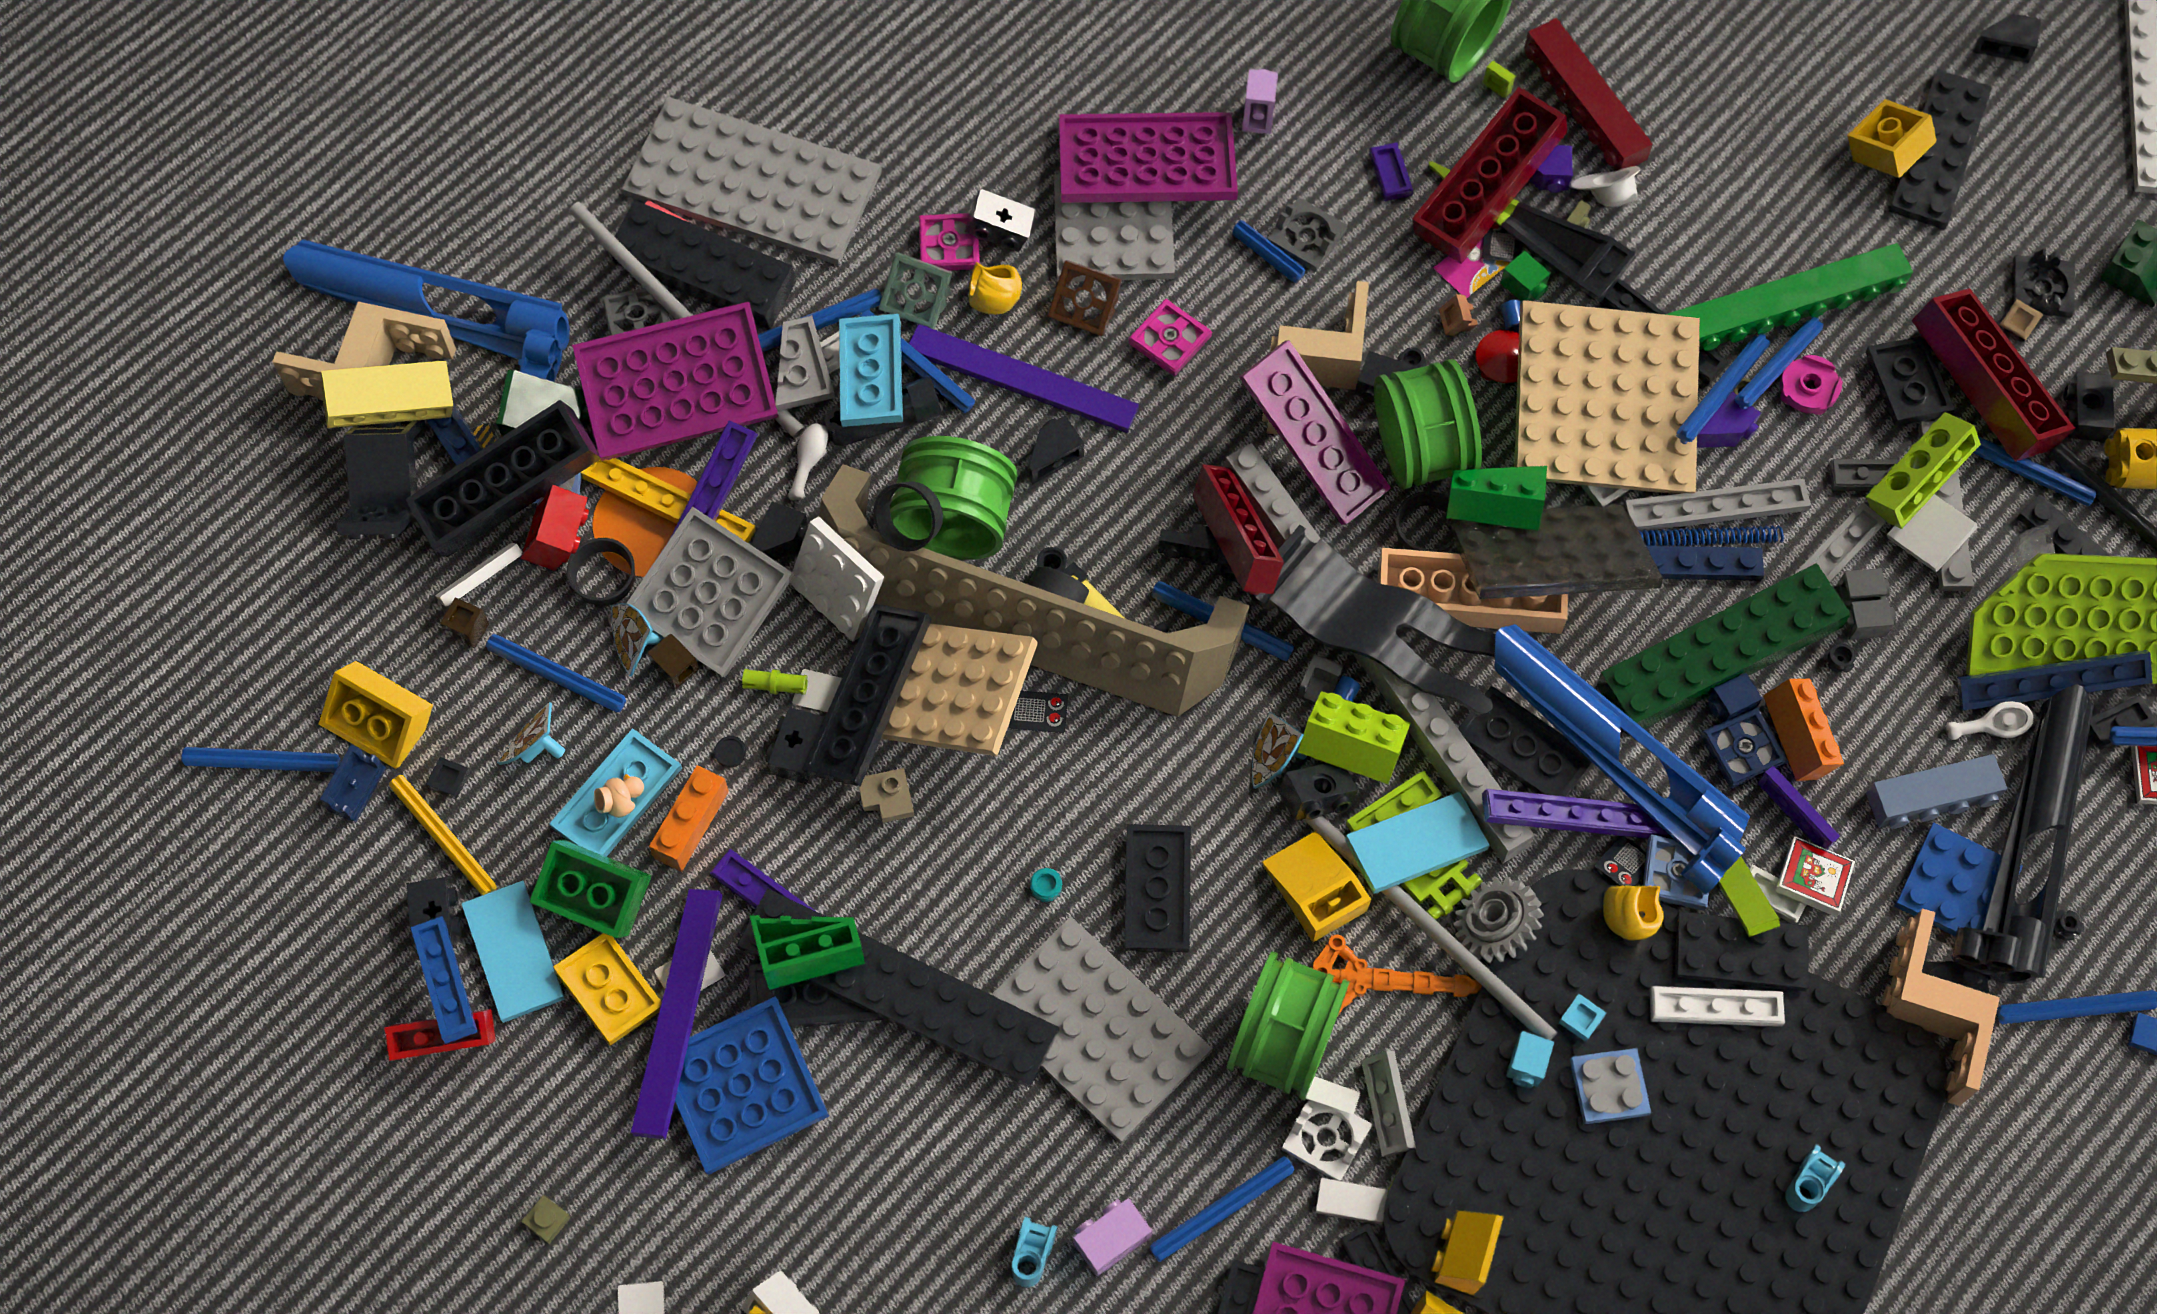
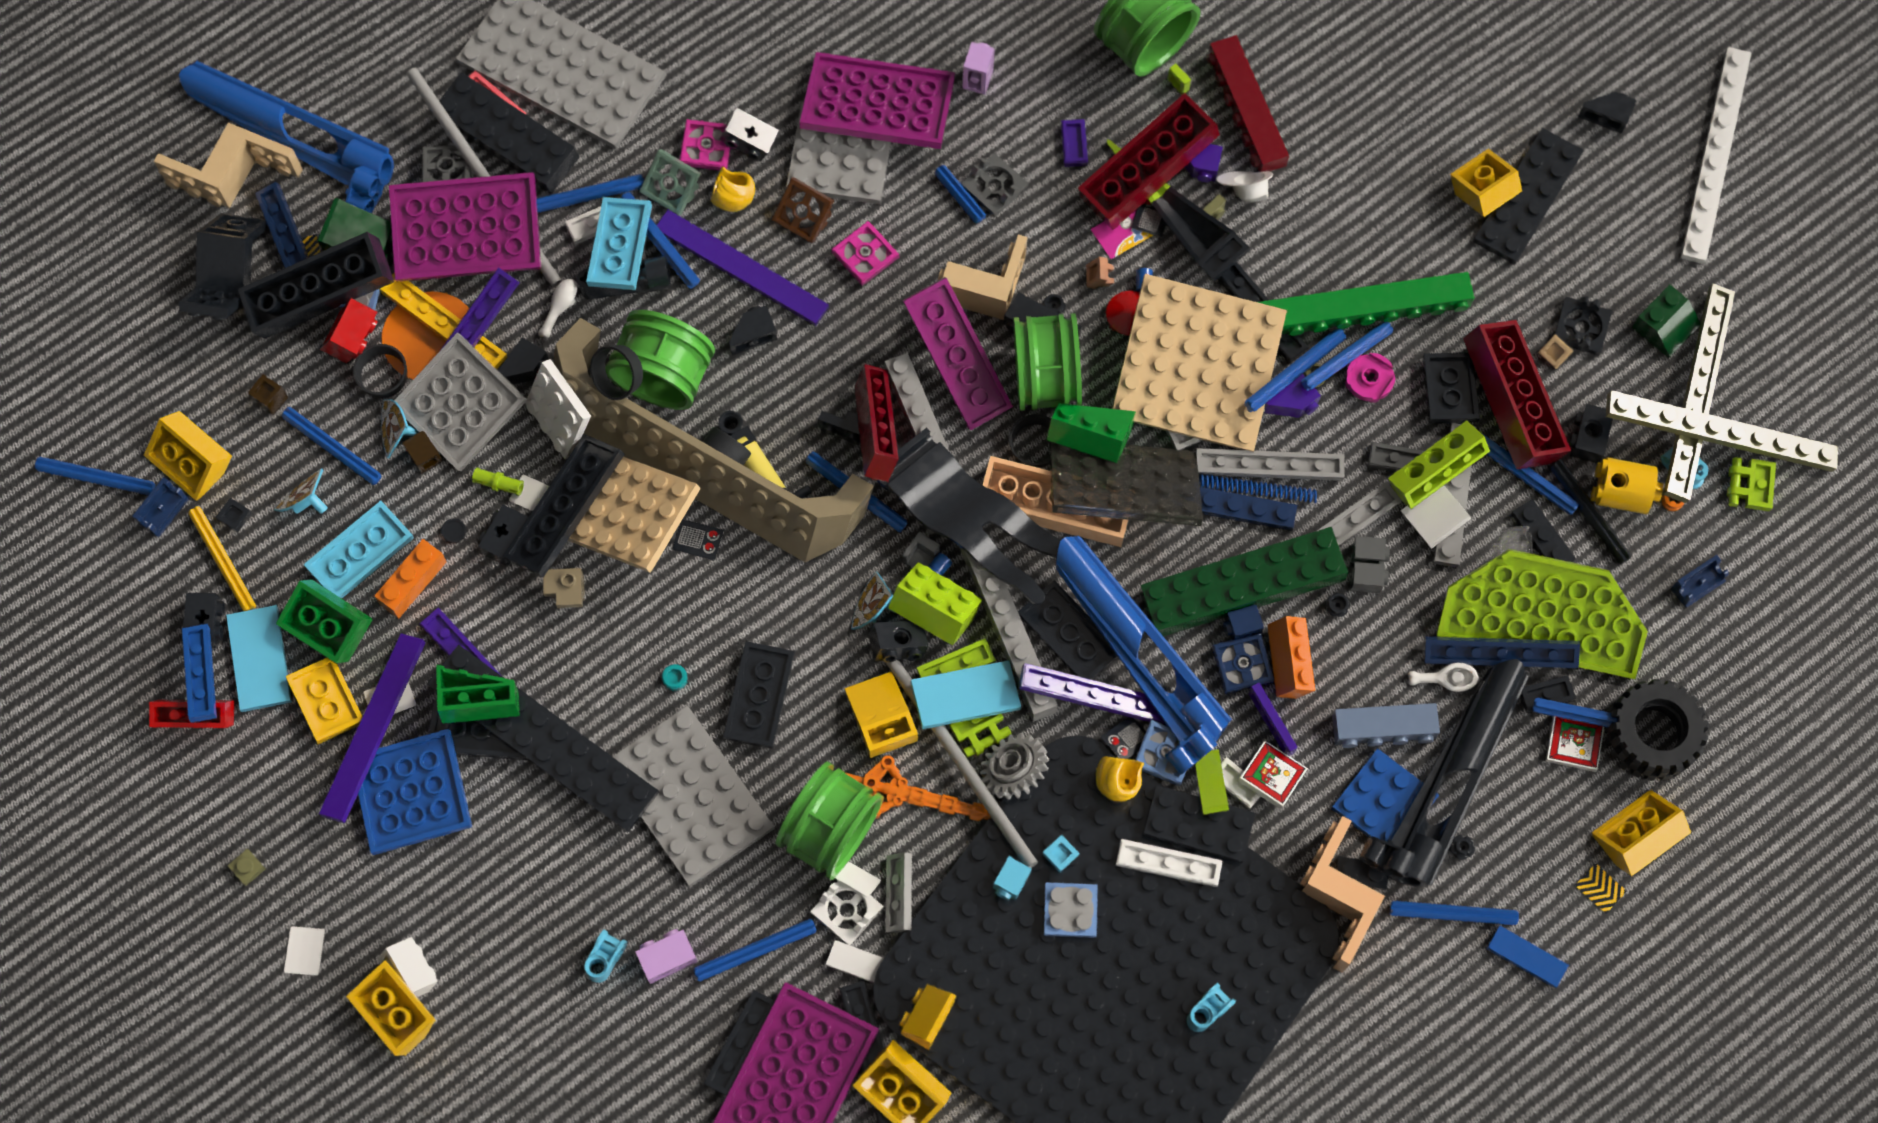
camera: 10 degrees right, 5 degrees up
(386, 394) = (237, 202): light yellow brick -> none
(479, 574) = (286, 357): white tile -> none
(617, 794) = (356, 552): light nougat animal -> none
(802, 367) = (568, 230): light grey wing -> none
(1525, 278) = (1160, 251): green brick -> none

